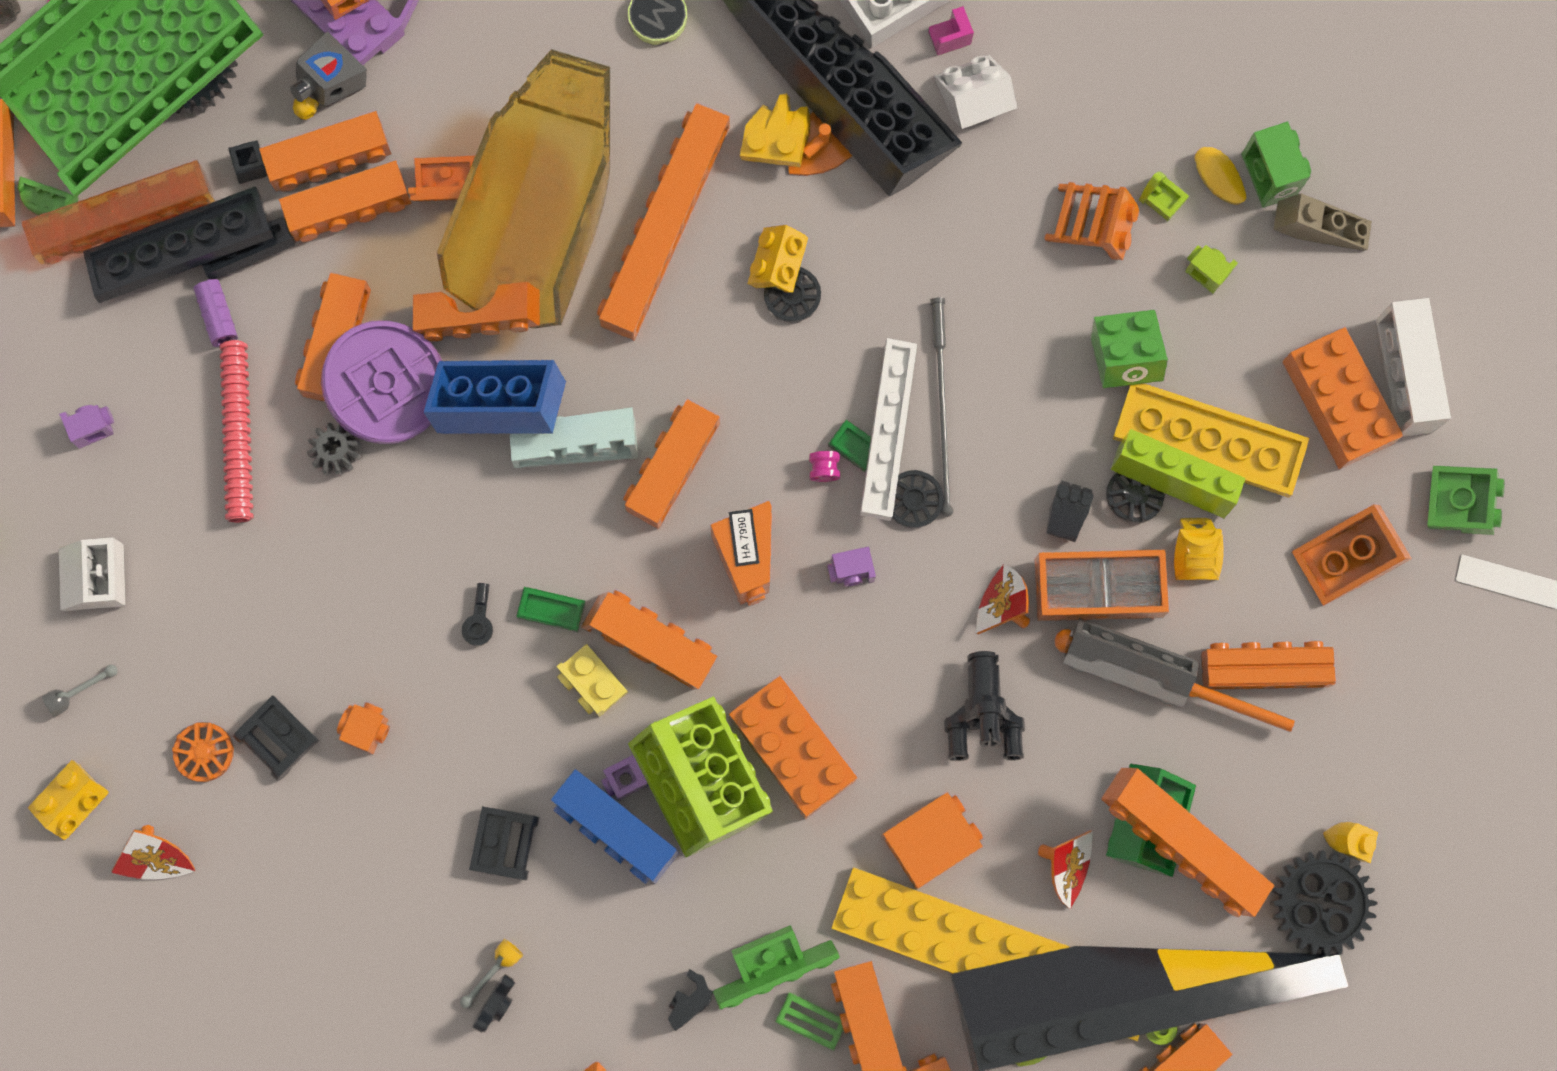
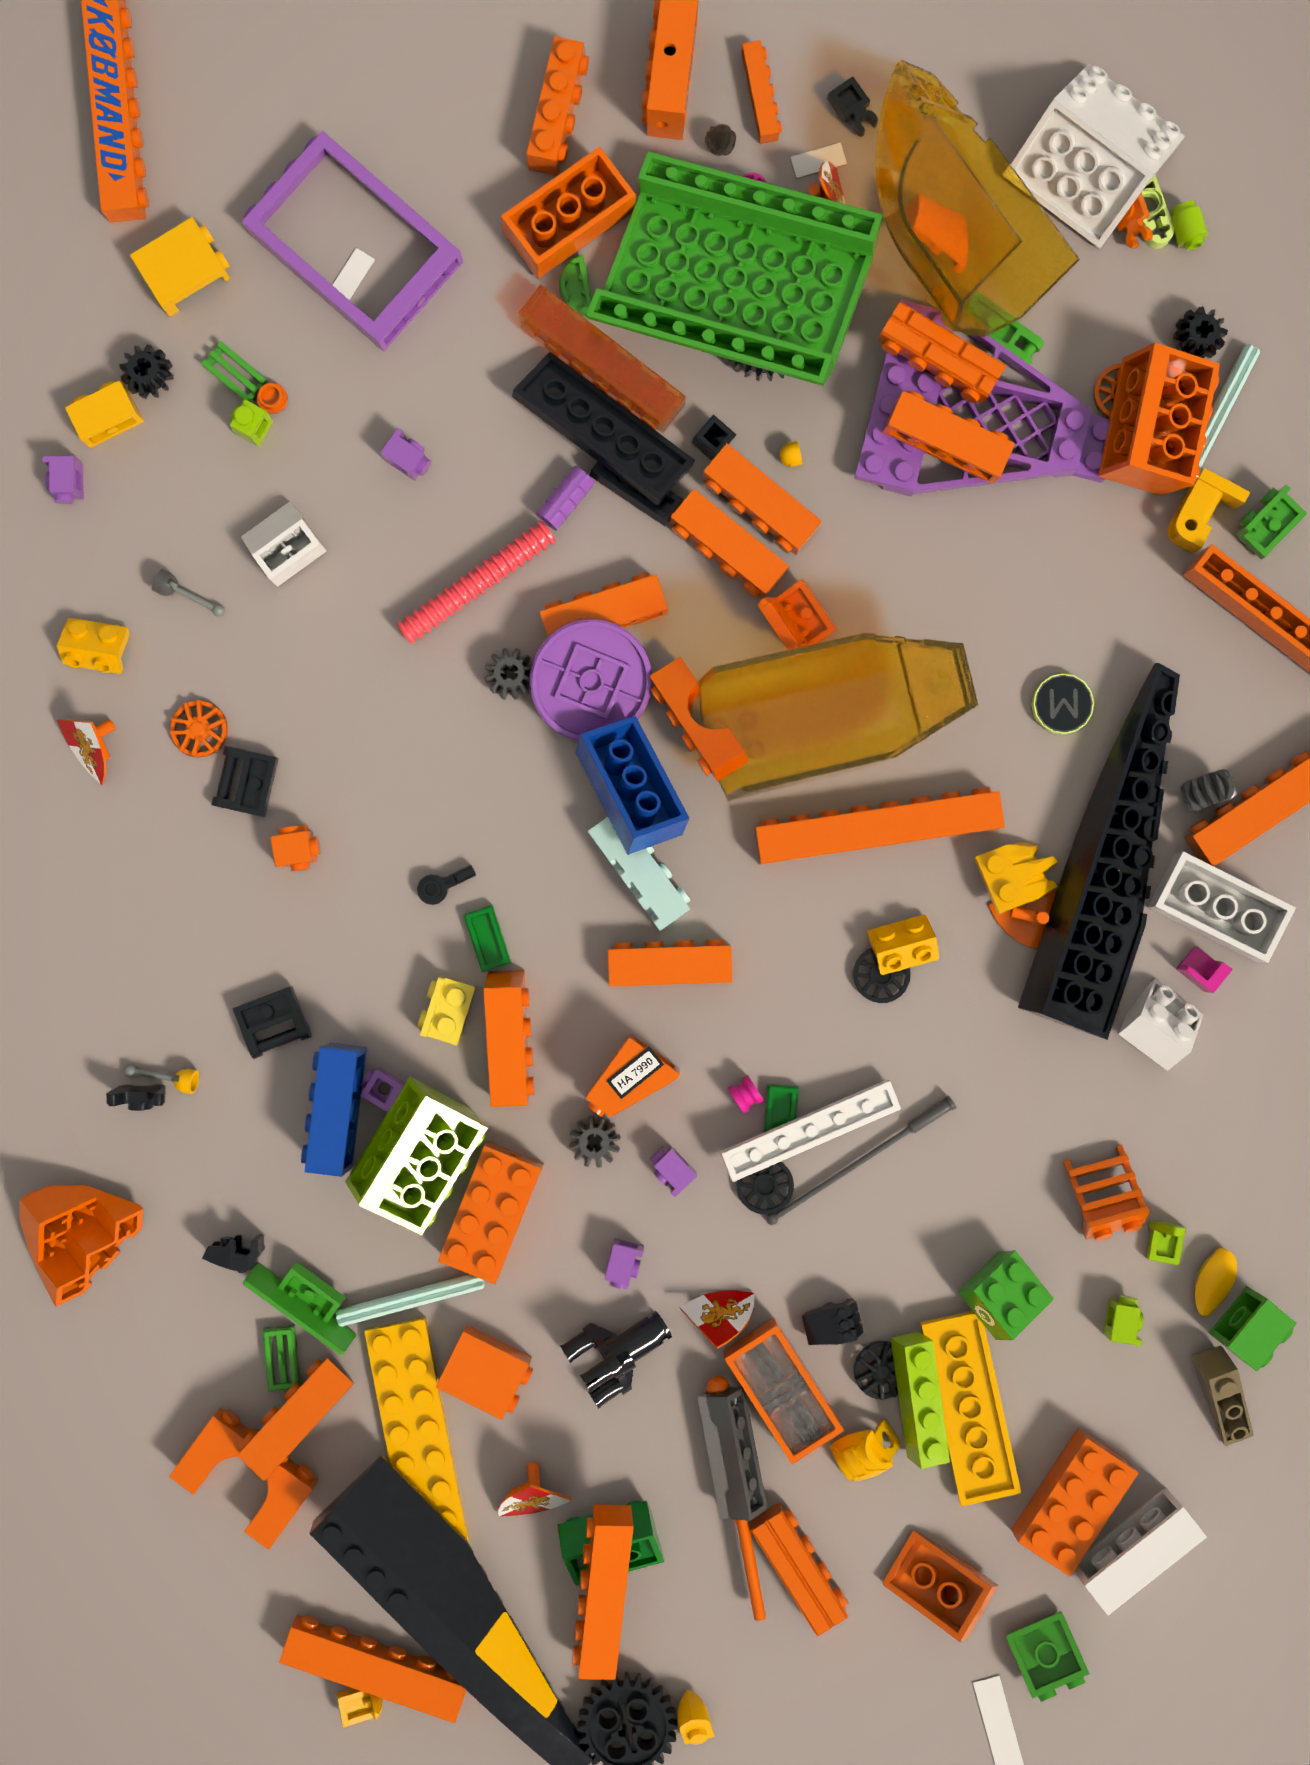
camera: 60 degrees right, 10 degrees up
(328, 72) = (832, 455): dark grey torso -> none
(778, 627) = (605, 1142): none -> dark grey gear
(827, 870) = (408, 1299): none -> light aqua axle
(908, 660) = (622, 1263): none -> medium lavender brick

